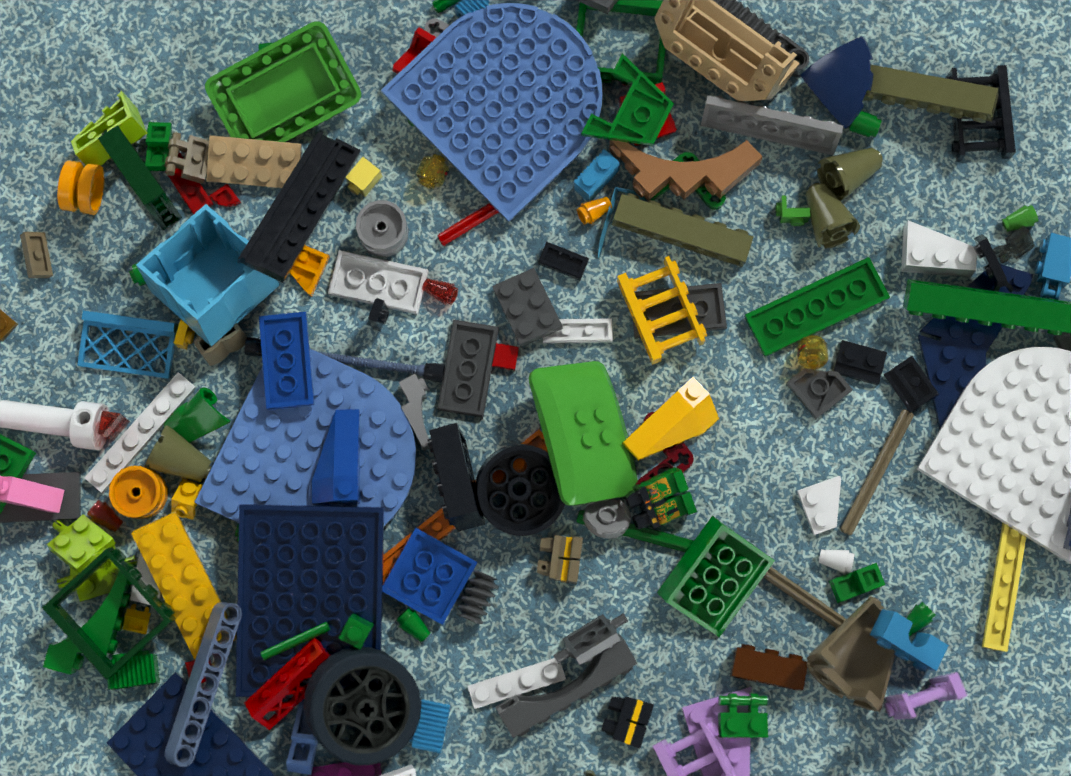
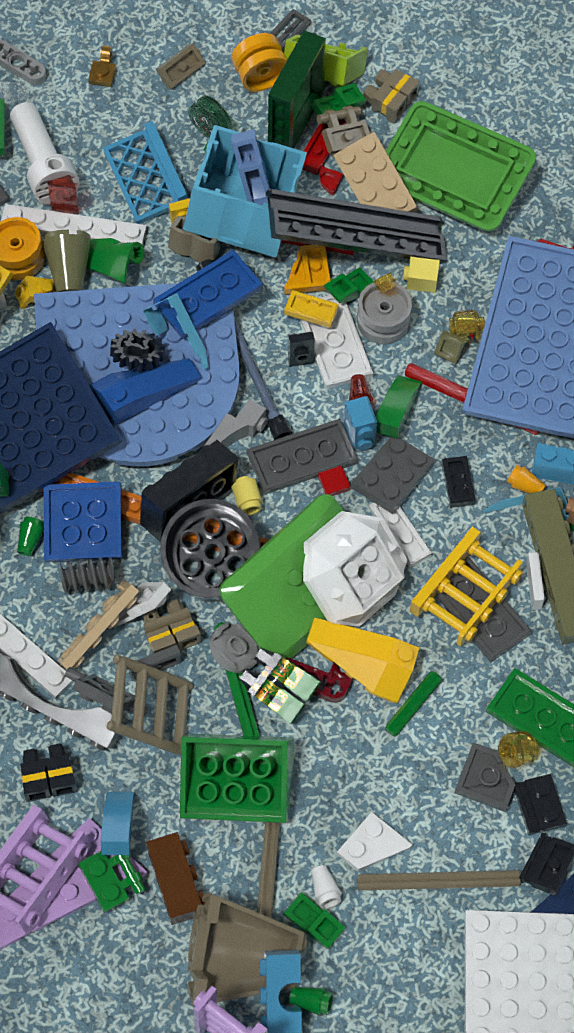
camera: 55 degrees right, 15 degrees down
(55, 164) = (303, 26): none -> dark grey tile
(108, 260) = (208, 113): none -> clear green head
(178, 96) = (394, 95): none -> dark tan hips
(193, 257) = (251, 166): none -> medium blue slope
(283, 416) = (159, 326): none -> medium azure piece
(307, 448) = (137, 350): none -> black gear
(338, 240) = (348, 287): none -> green slope
(344, 284) = (311, 309): none -> yellow plate
(364, 213) = (385, 282): none -> clear yellow plate
(442, 195) = (450, 346): none -> olive tile
(471, 268) = (397, 406): none -> green slope
(474, 307) = (360, 423): none -> dark azure brick
(480, 432) = (247, 495): none -> light yellow brick
(526, 612) = (111, 608): none -> tan wing
(527, 567) = (150, 596): none -> white wing
(583, 586) = (160, 660): none -> dark grey tile
(602, 388) = (334, 561): none -> white piece
(644, 633) = (136, 731): none -> dark tan bar
(682, 255) = (535, 581): none -> white tile
(703, 688) = (117, 823): none -> dark azure slope
(727, 407) = (413, 703): none -> green axle

